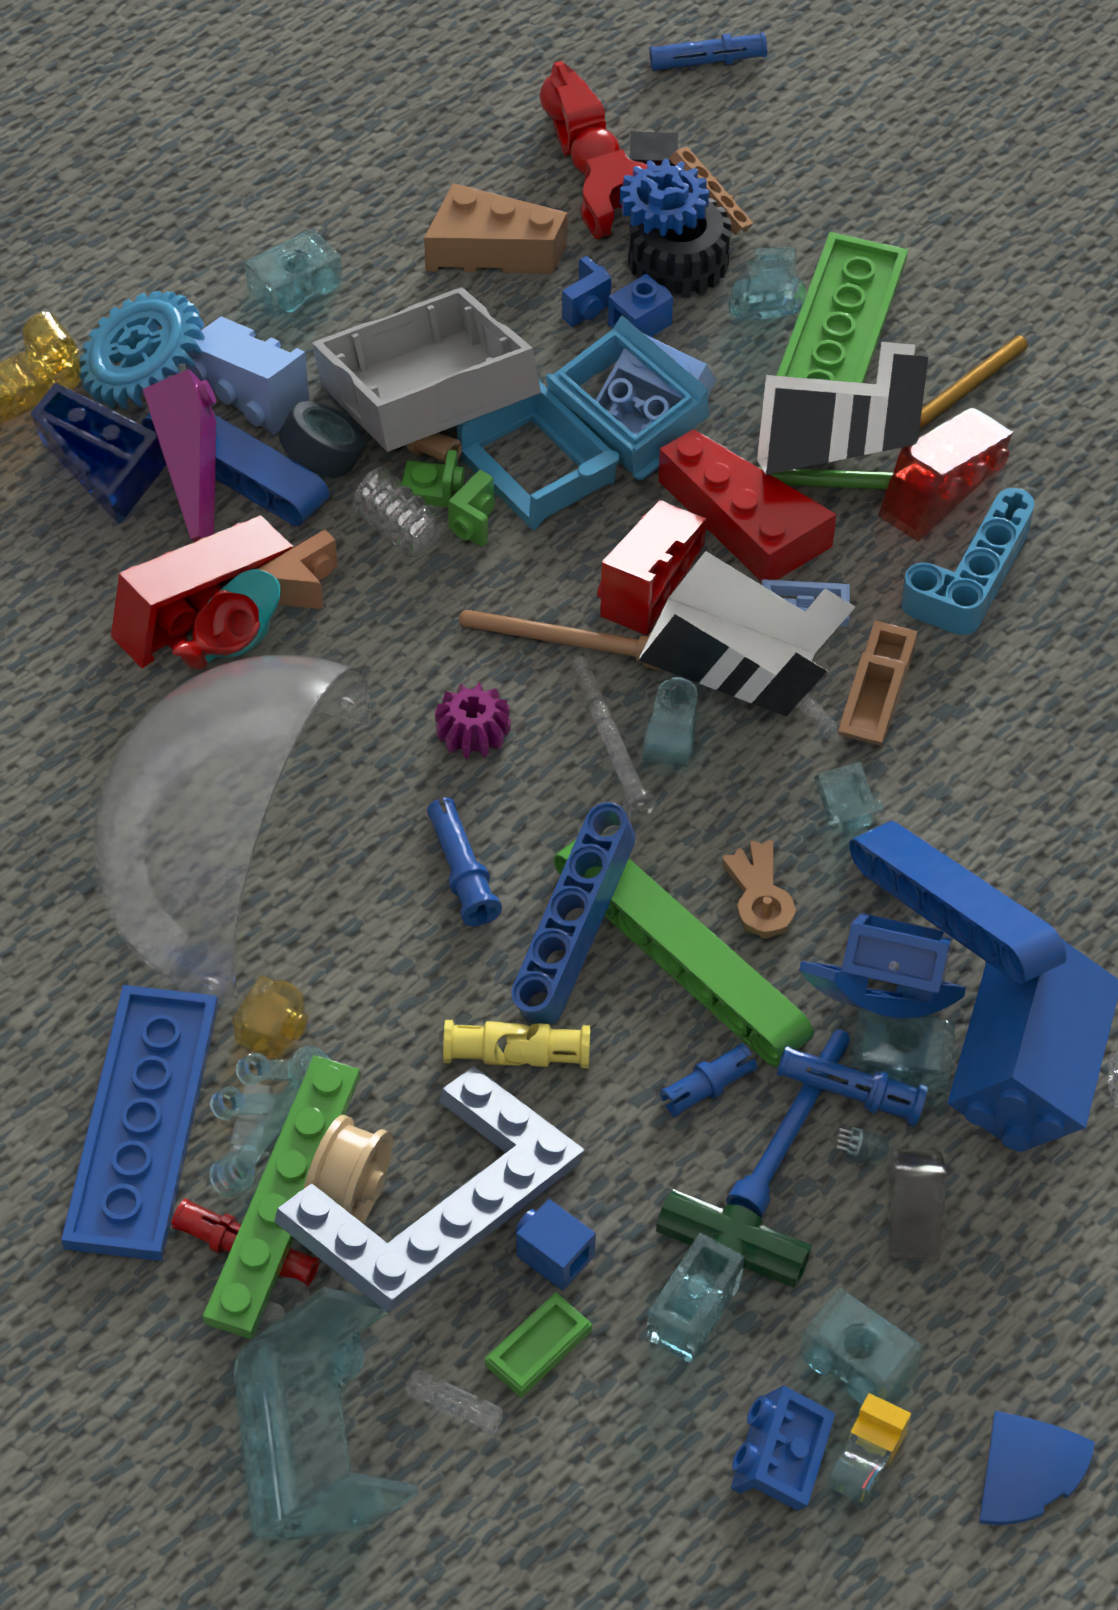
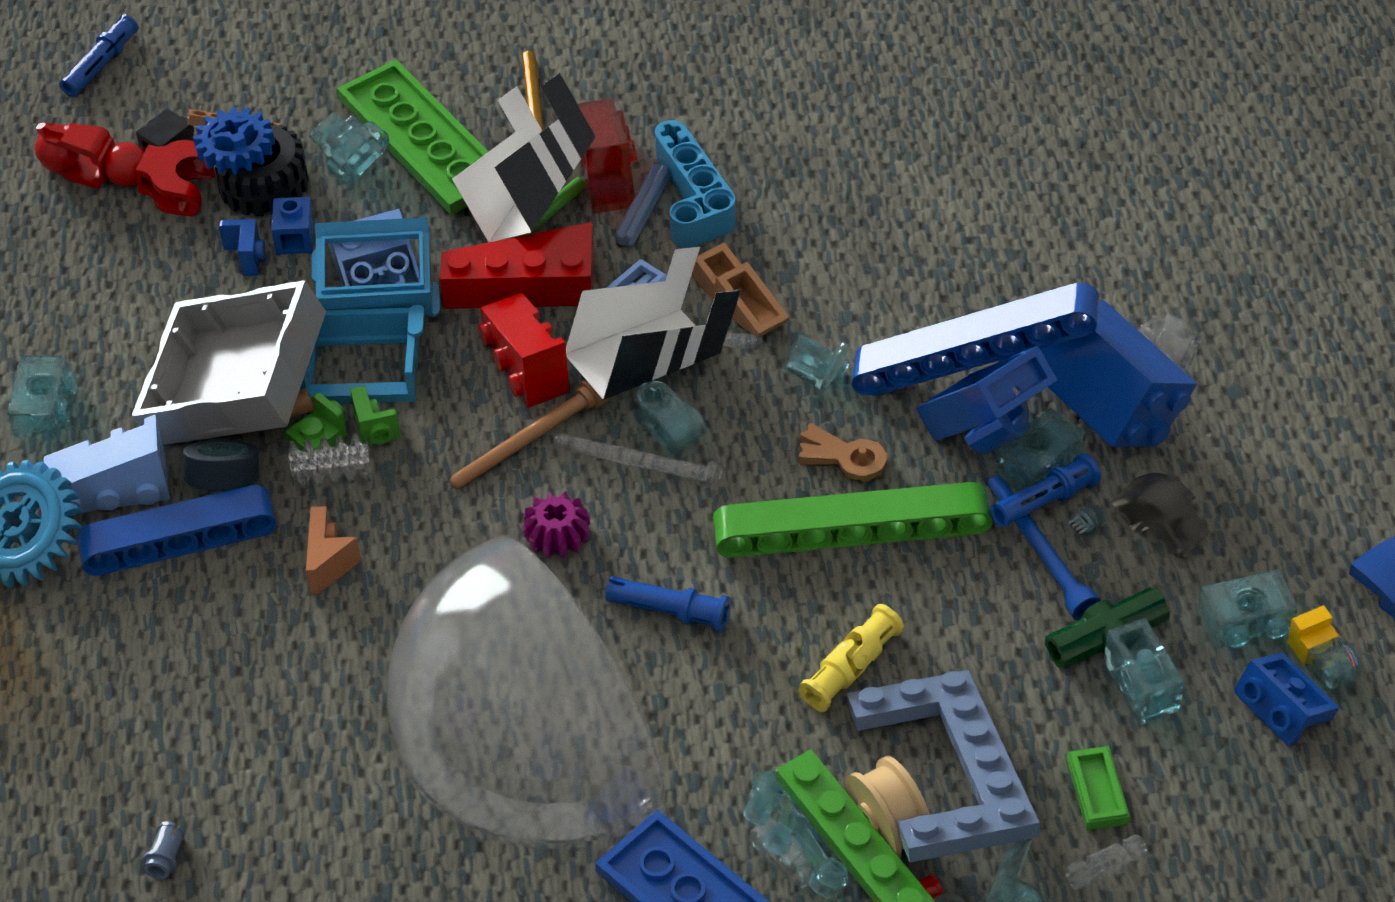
camera: 50 degrees left, 5 degrees down
(100, 448) = (83, 604): clear blue wedge -> none
(163, 595) = (276, 619): wedge -> none
(188, 442) = (139, 533): magenta slope -> none
(232, 619) = (335, 606): red hair -> none
(270, 1017) = (703, 788): clear yellow brick -> none
(494, 232) = (135, 261): medium nougat wedge -> none
(554, 1243) = (1036, 725): blue brick -> none
(571, 893) = (788, 572): blue beam -> none
(708, 1079) = (969, 570): blue pin -> none
(917, 544) = (642, 205): none -> sand blue axle

